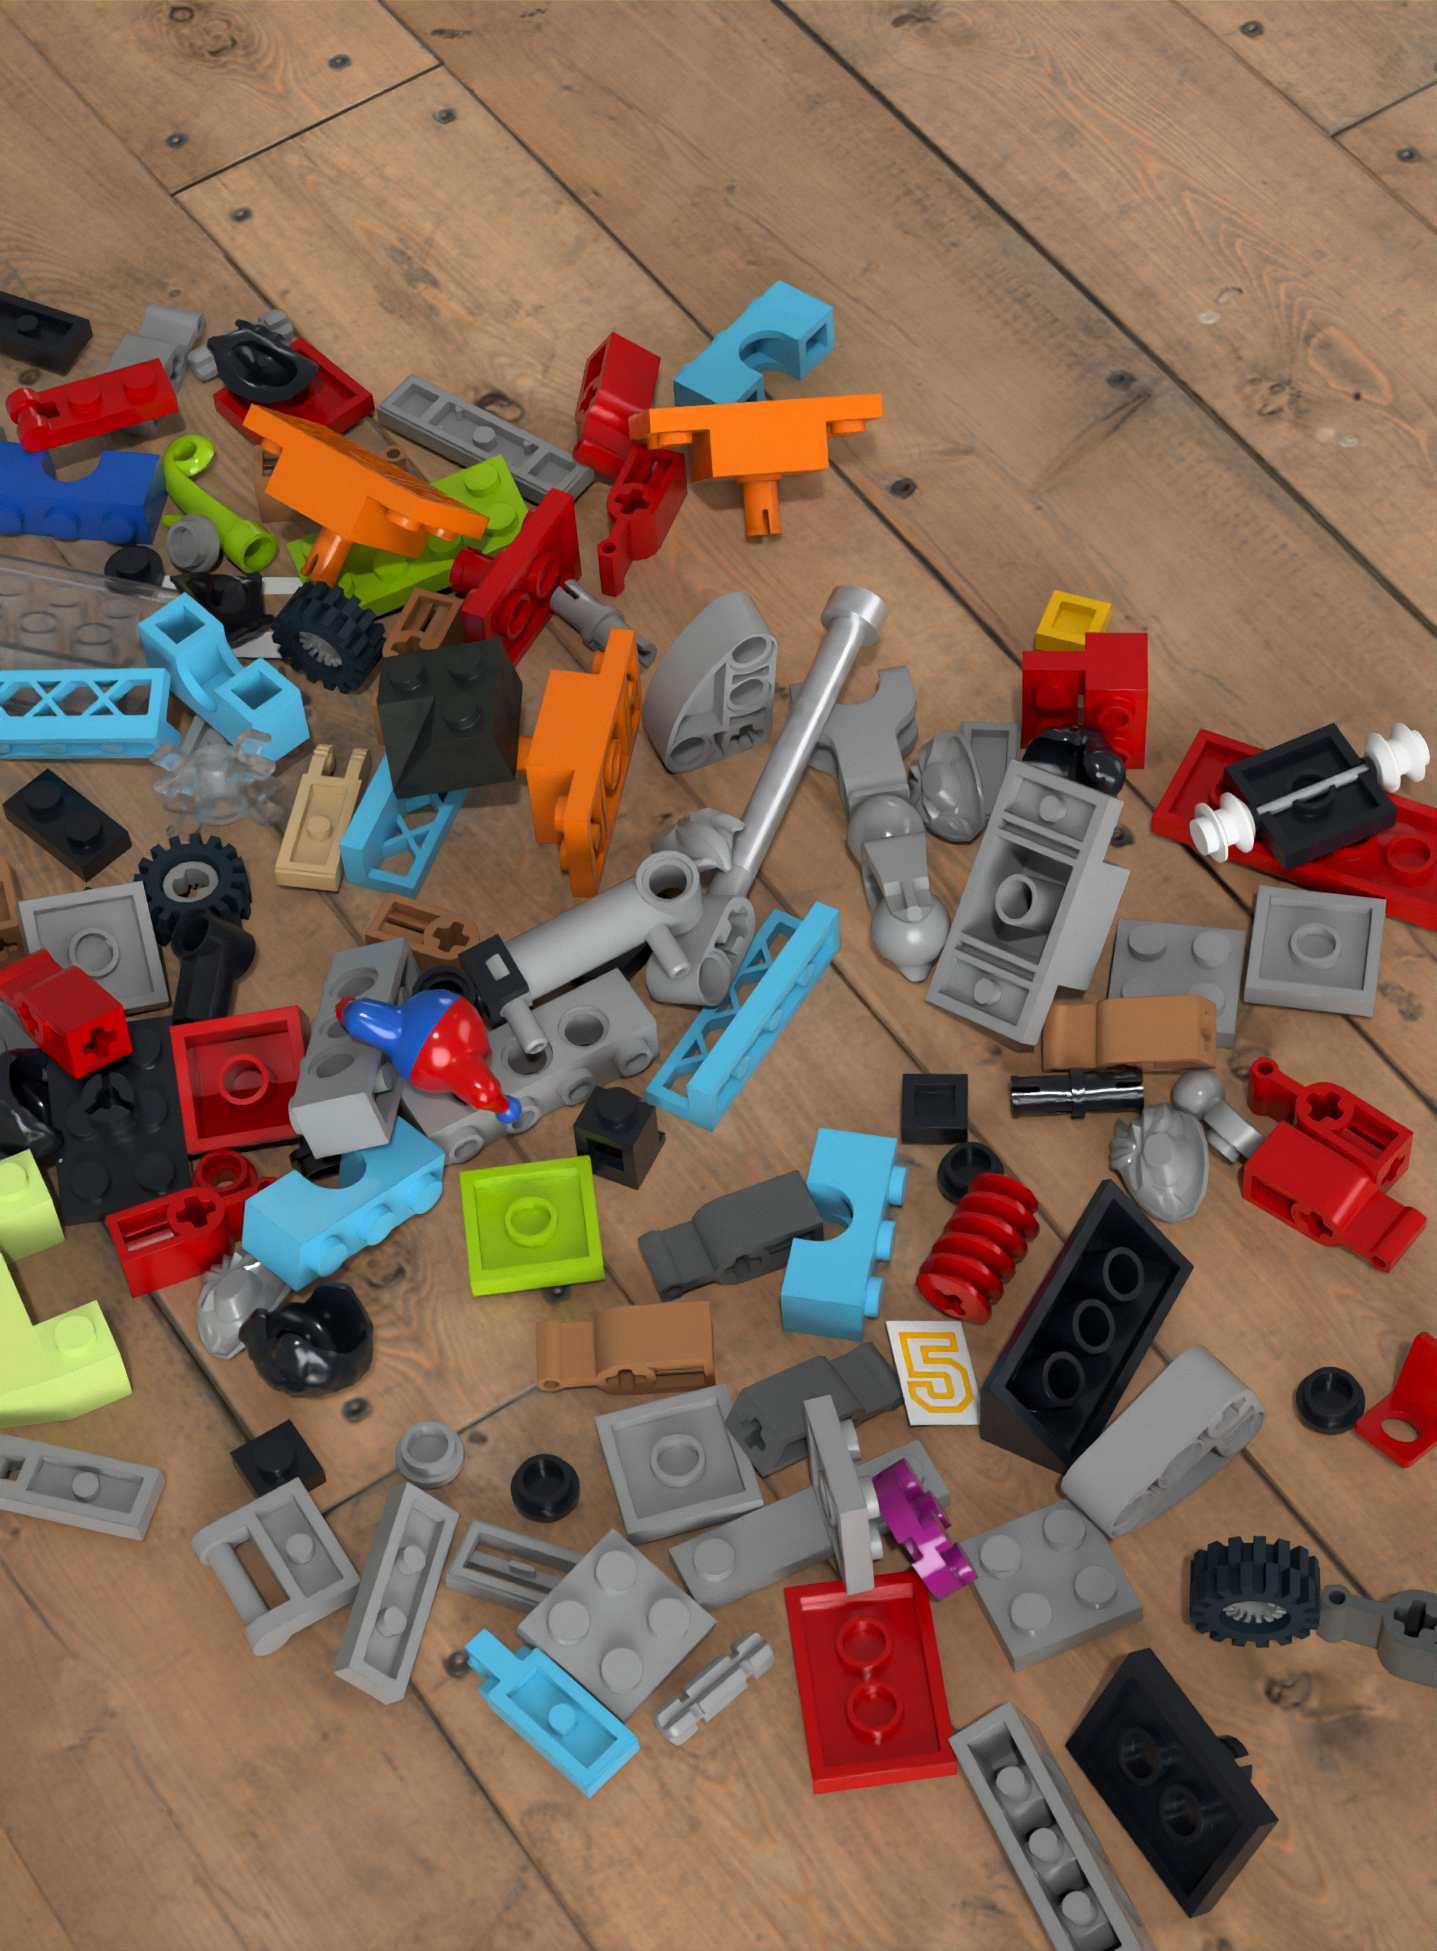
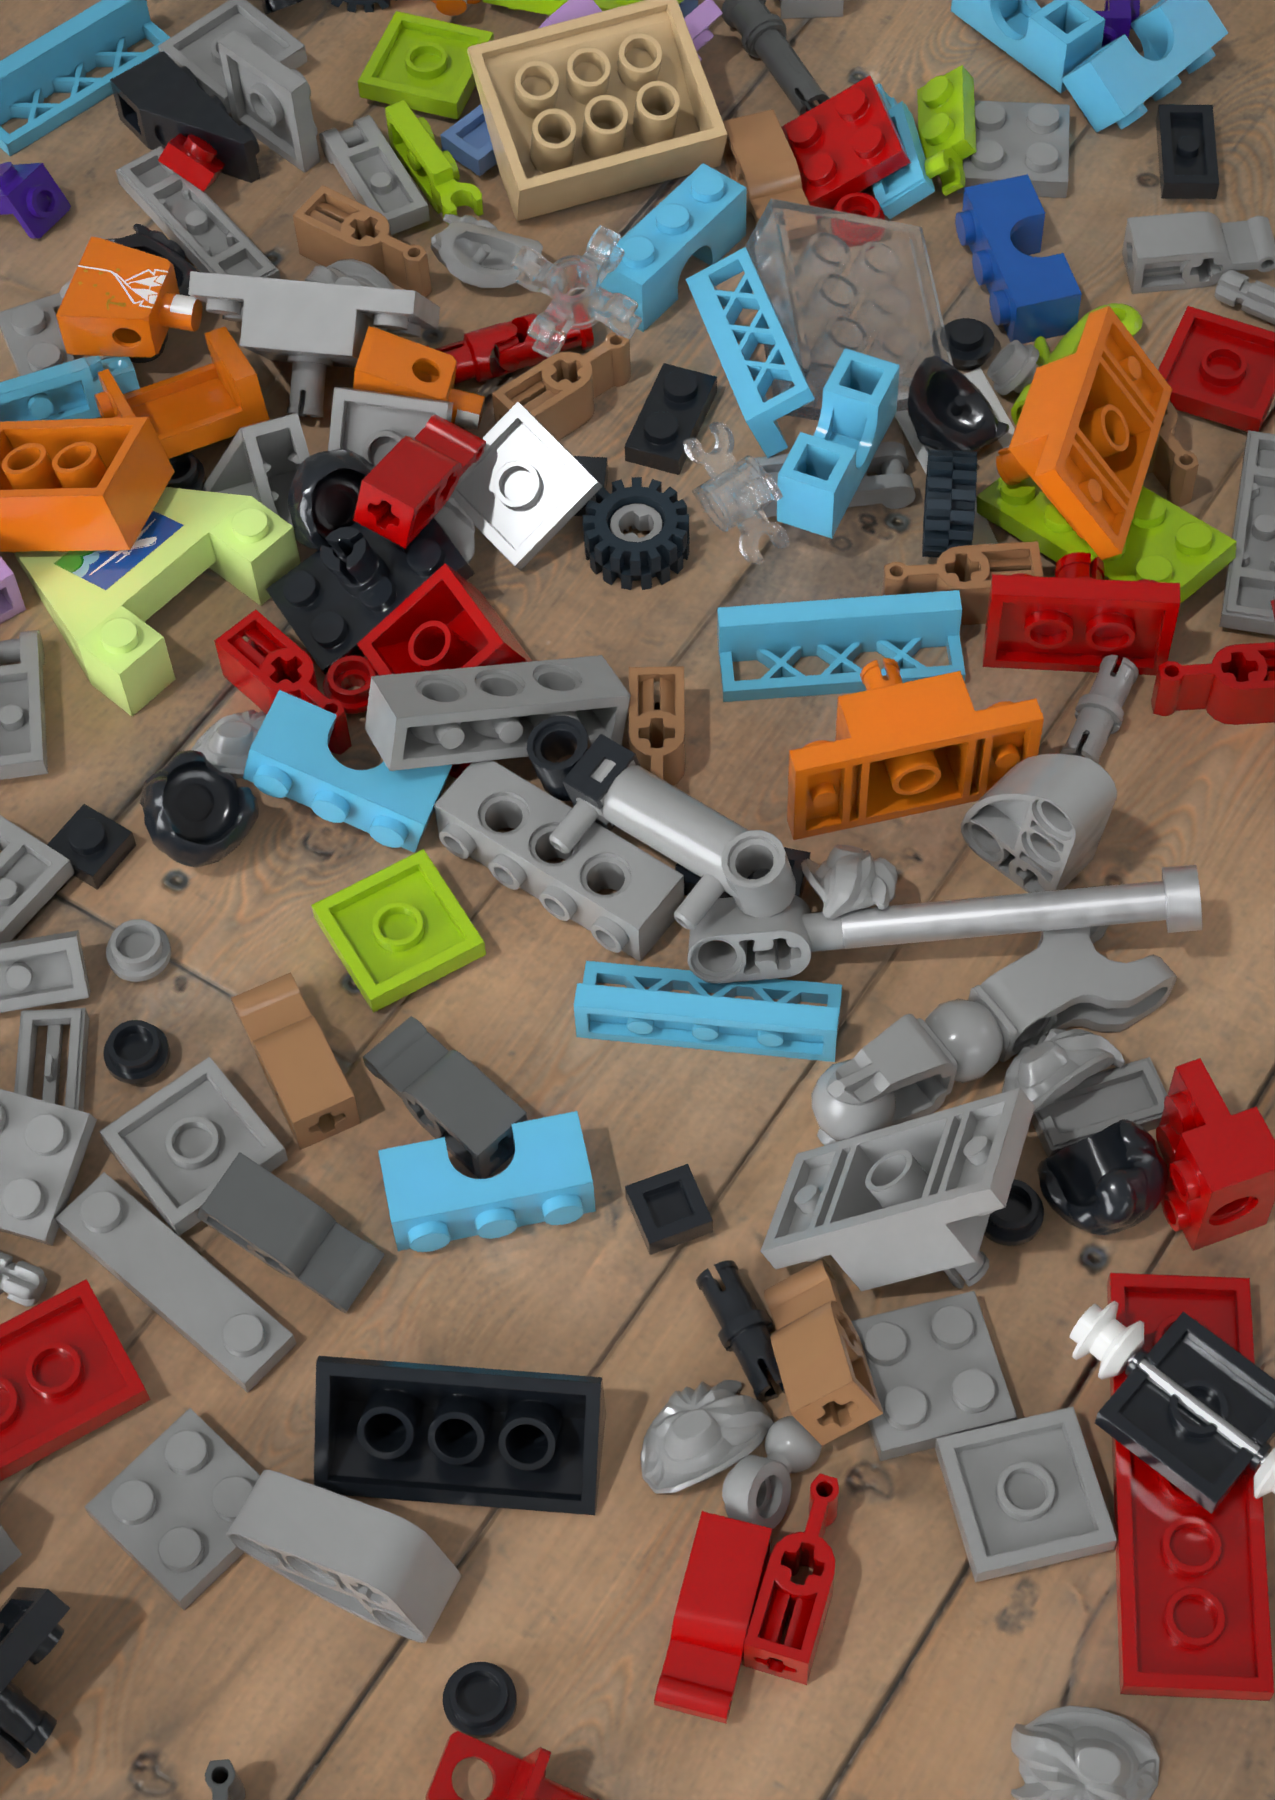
camera: 65 degrees right, 5 degrees up
(91, 406) = (1102, 221): red plate -> none
(212, 960) = (565, 572): black piece -> none
(260, 364) = (1229, 316): black hat -> none
(319, 820) = (764, 582): tan hinge -> none
(433, 1045) = (483, 755): piece -> none
(450, 717) = (873, 620): pearl dark grey slope -> none
(624, 1122) = (516, 957): black brick -> none
(844, 1497) = (155, 1276): light grey plate -> none
(921, 1525) = (152, 1397): magenta plate -> none
(935, 1372) = (380, 1318): white sticker -> none
(962, 1165) = (610, 1271): black plate -> none
(979, 1248) = (509, 1307): red piece -> none
(1255, 1591) = (204, 1695): black bush -> none

